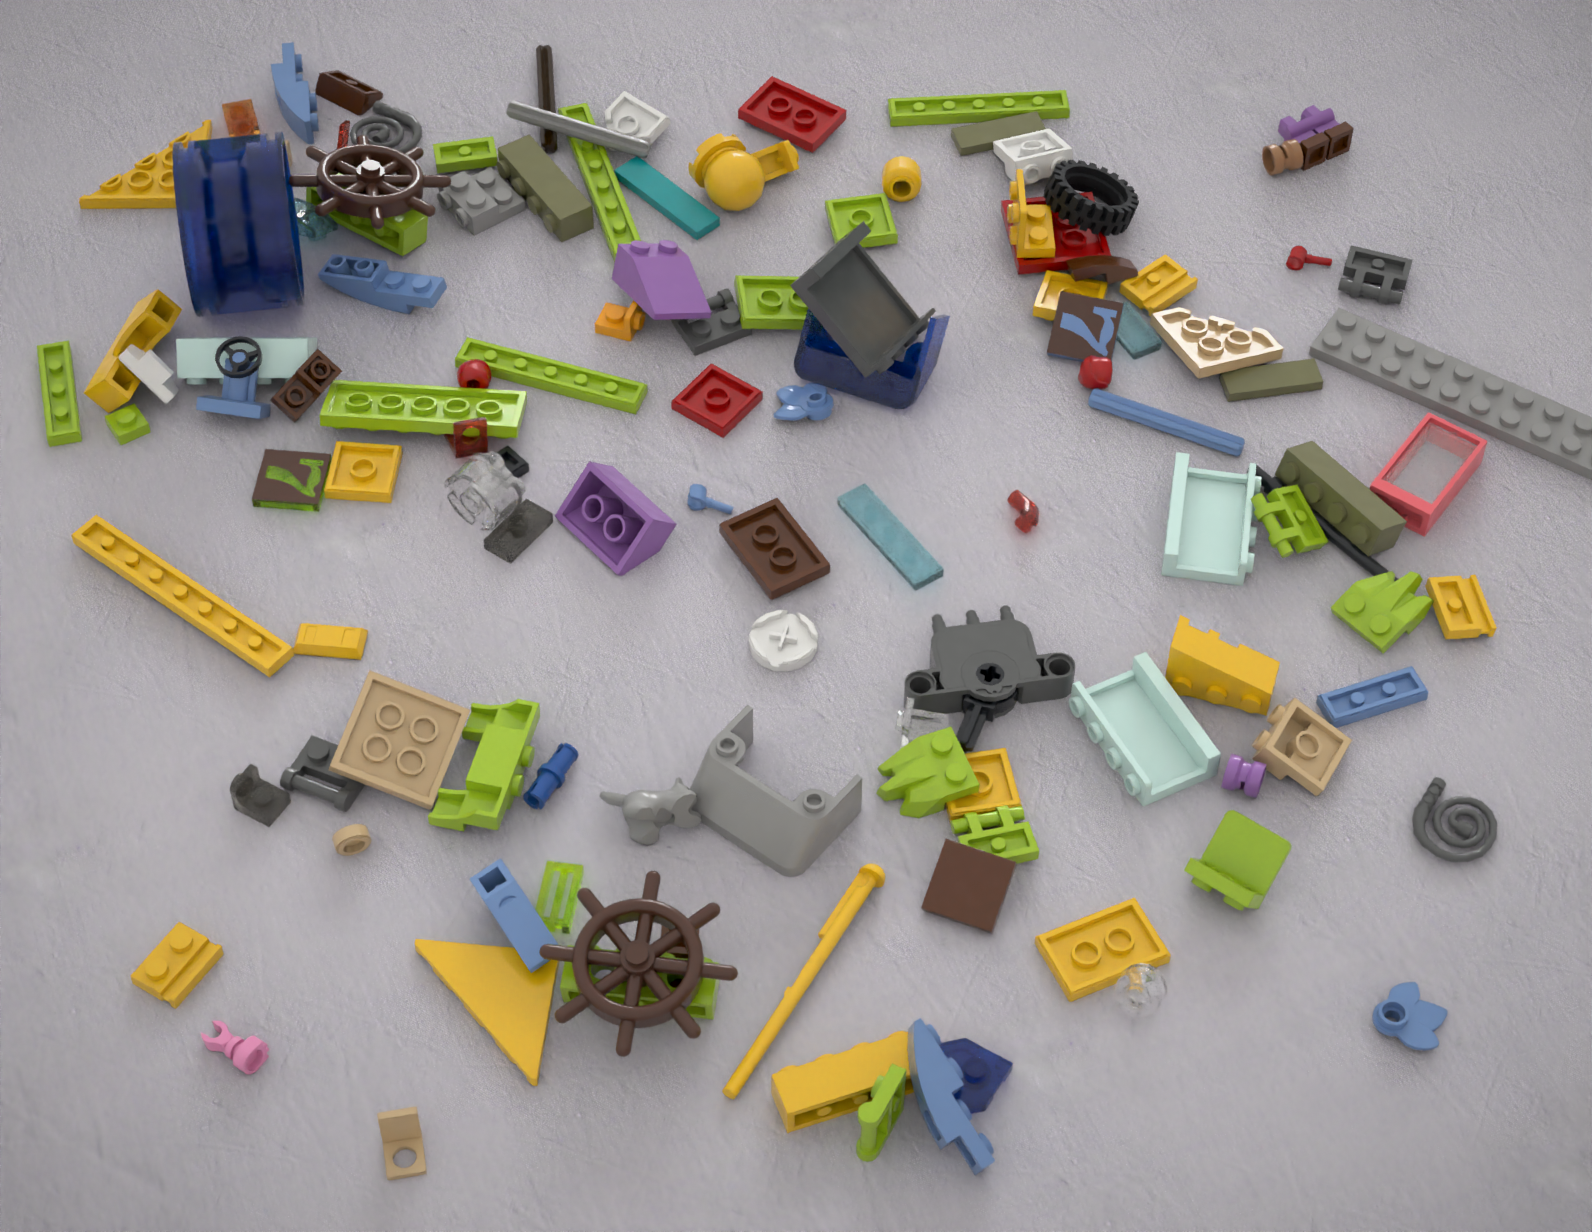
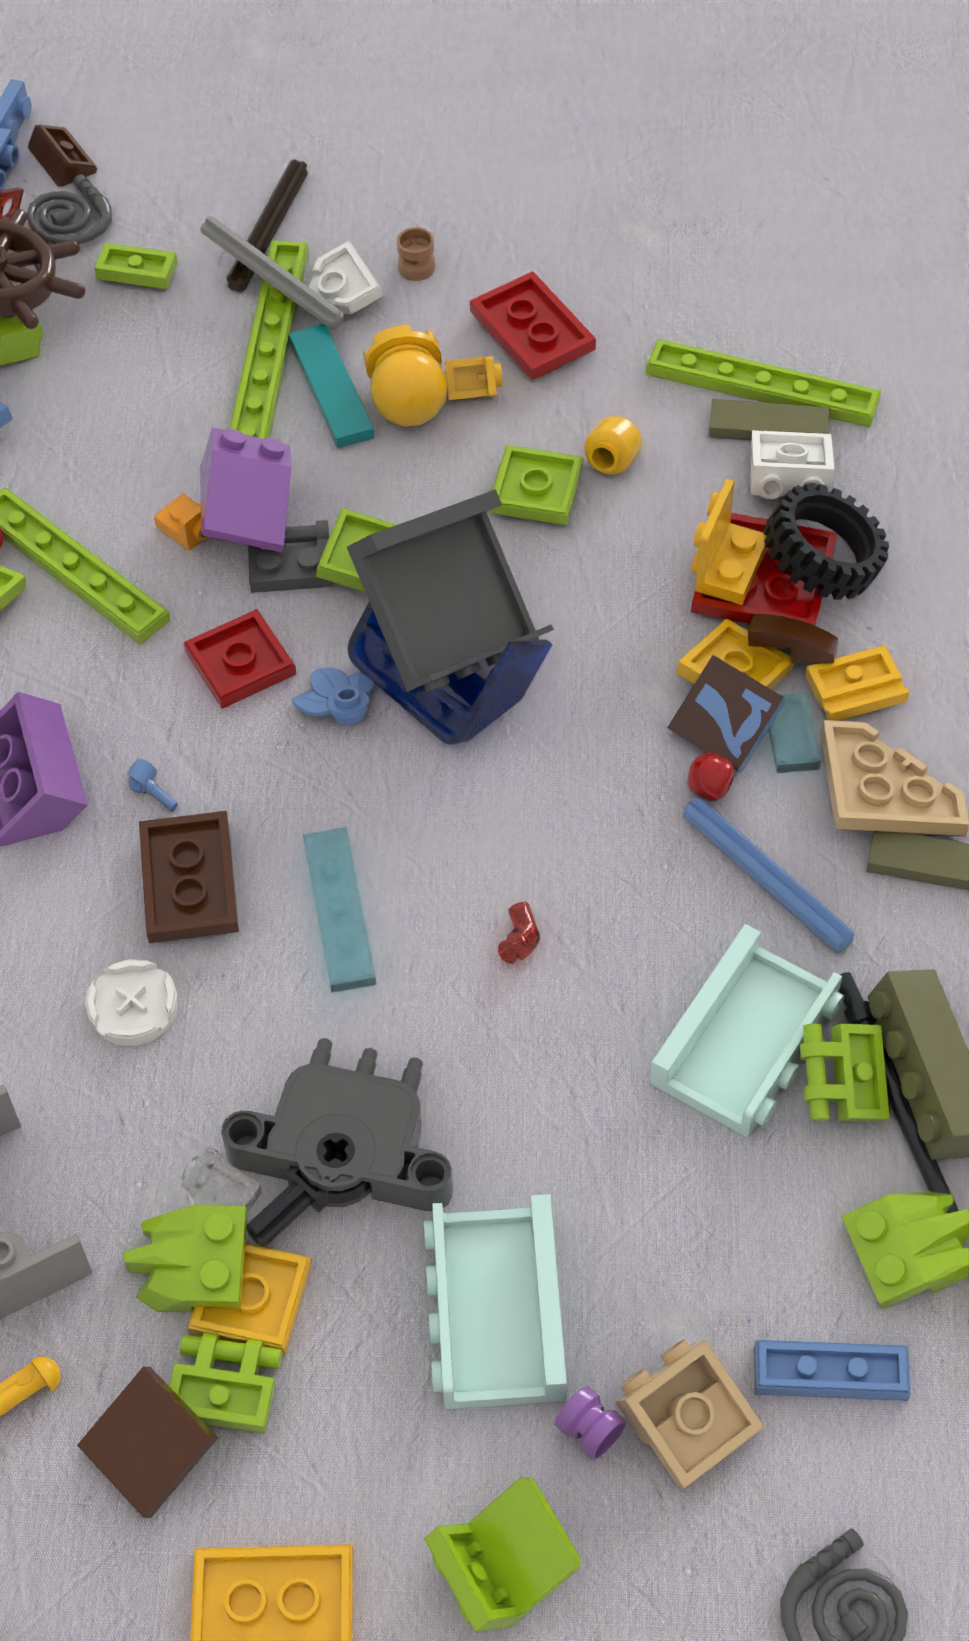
camera: 25 degrees right, 5 degrees up
(480, 200) = (120, 324): light grey plate -> none
(545, 188) = (196, 333): olive brick -> none
(676, 88) = (416, 253): none -> medium nougat wheel
(1219, 672) = (635, 1259): yellow wedge -> none

